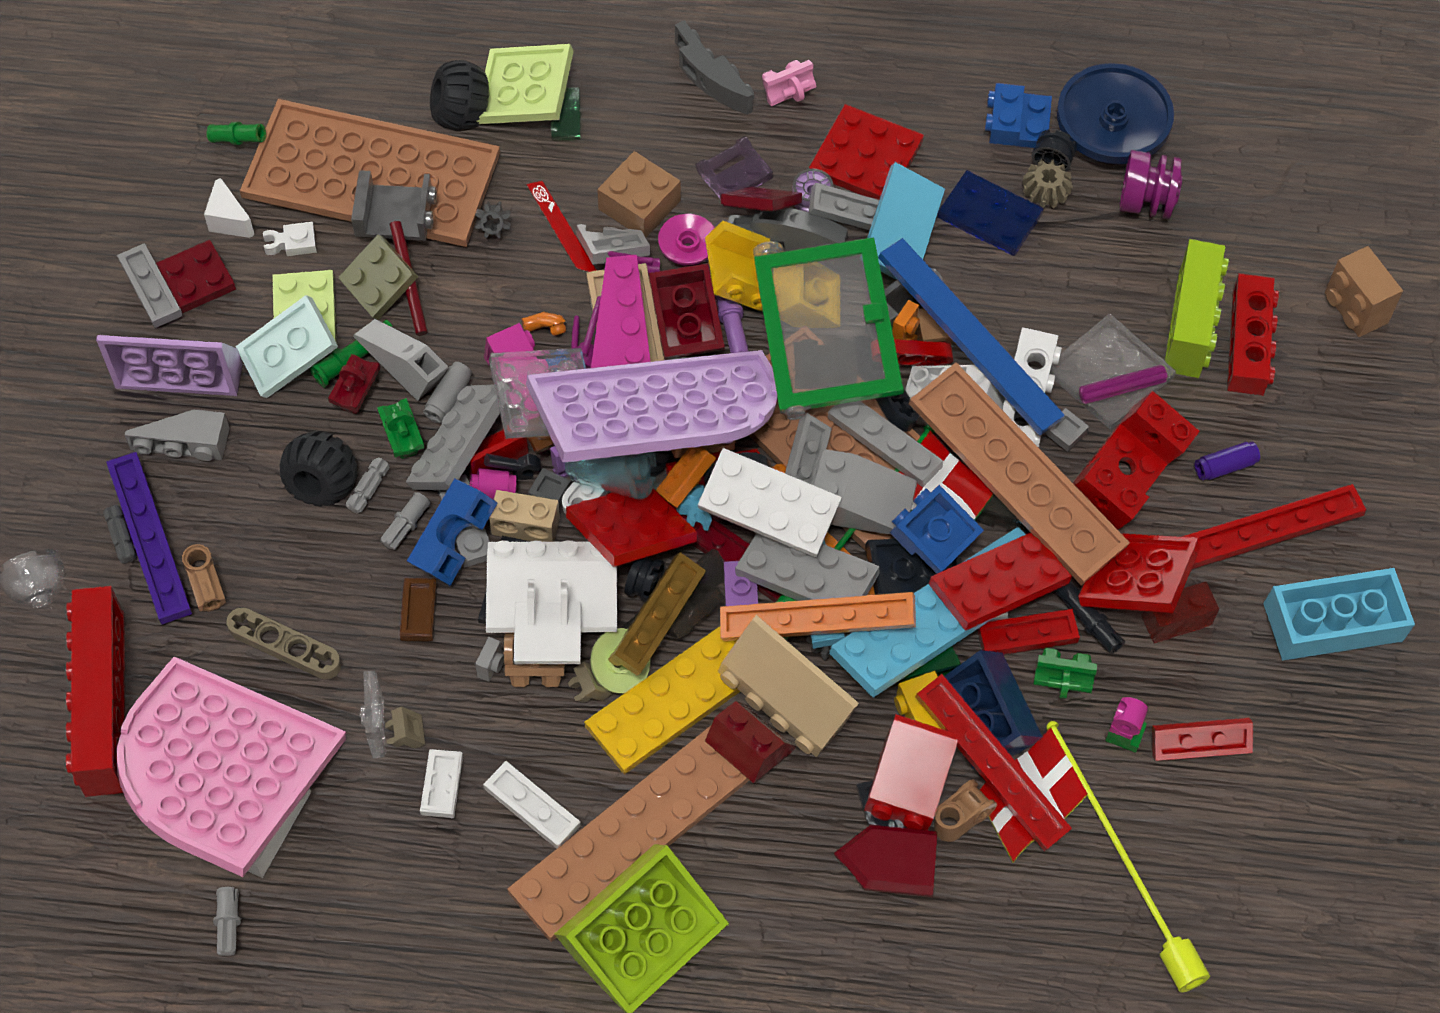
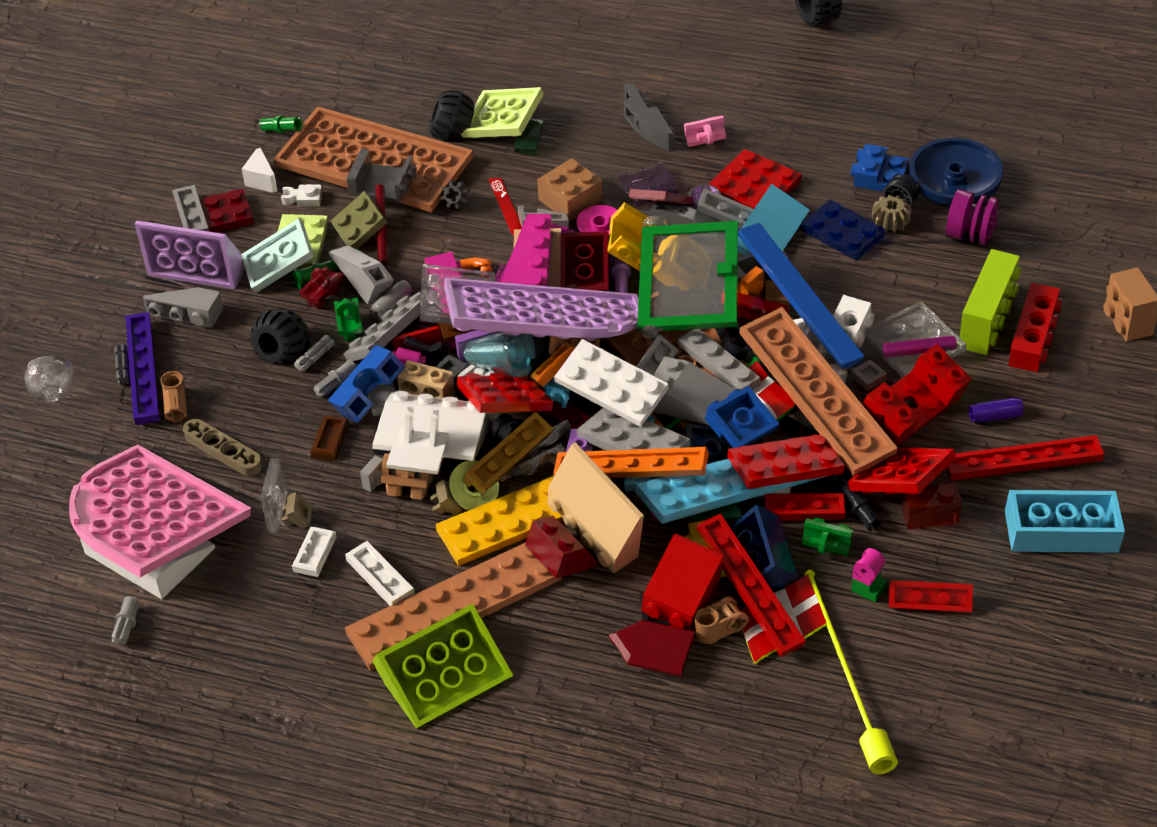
camera: 15 degrees right, 15 degrees down
(96, 689) = (72, 452): red brick -> none

